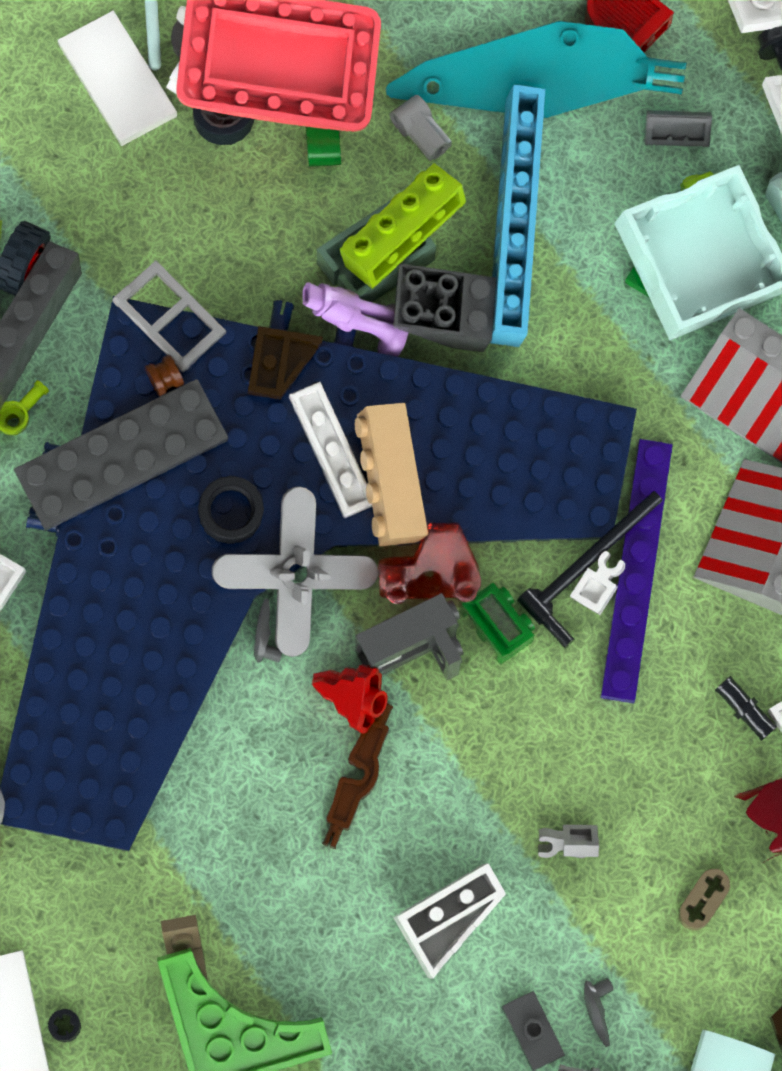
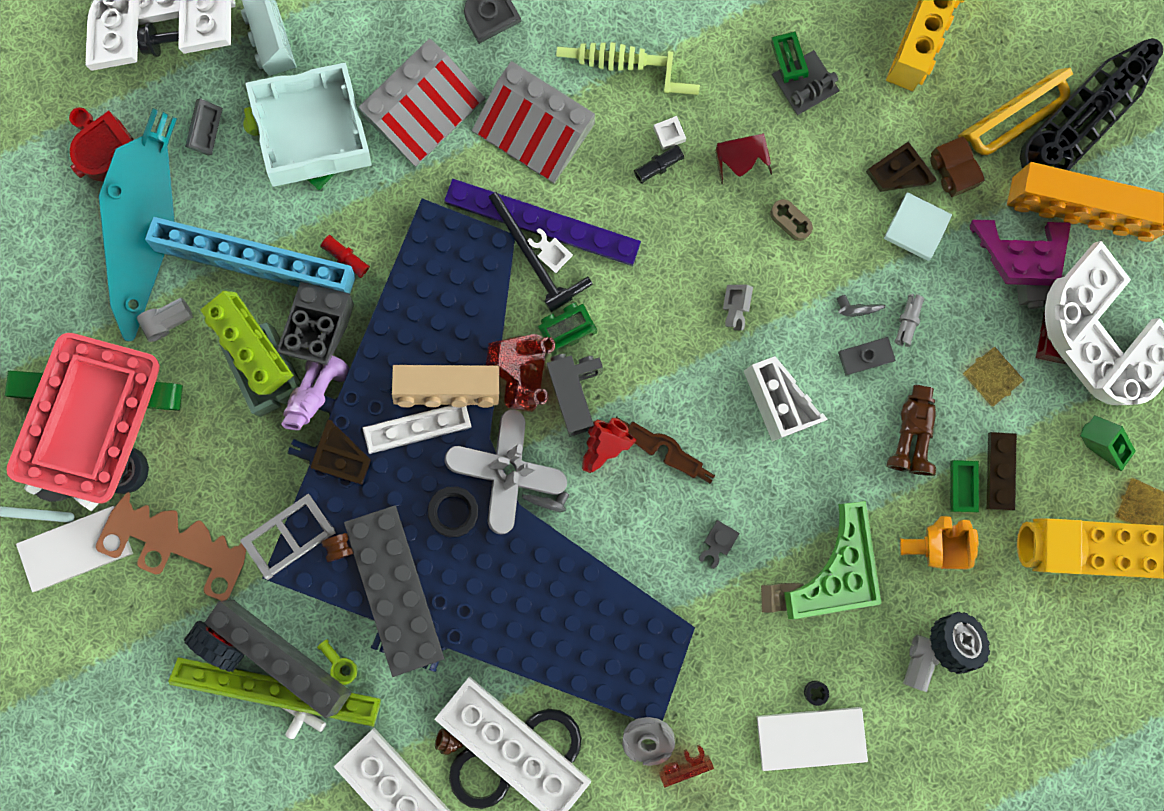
camera: 75 degrees left, 10 degrees up
(146, 177) = (163, 536): none -> nougat piece
(249, 868) = (720, 540): none -> dark grey plate
(542, 328) = (344, 255): none -> red pin

